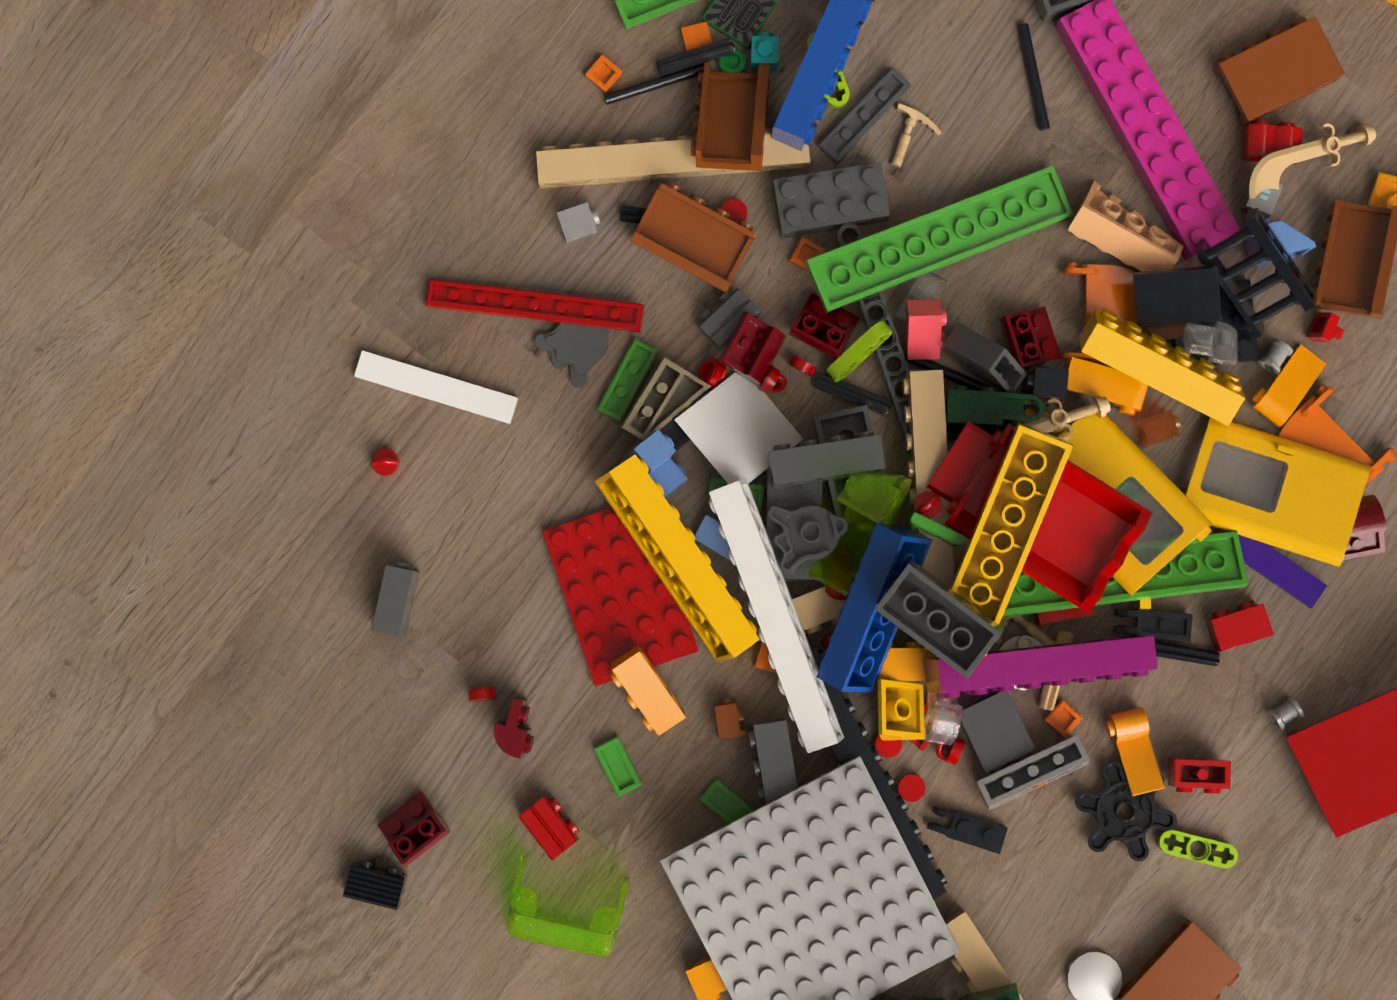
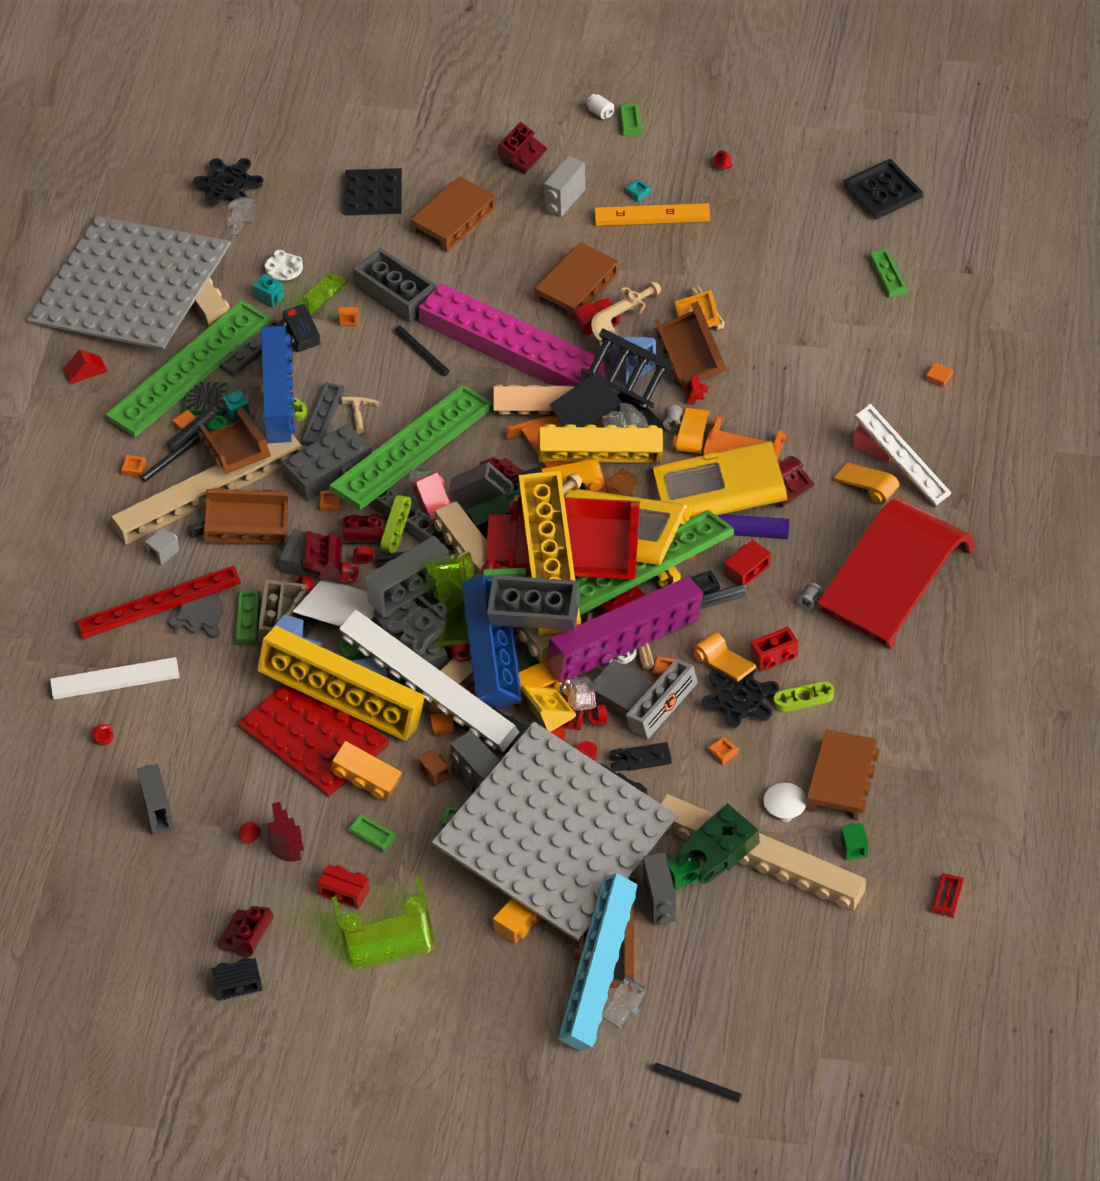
camera: 25 degrees left, 35 degrees down
(1065, 870) = (723, 750): none -> orange tile

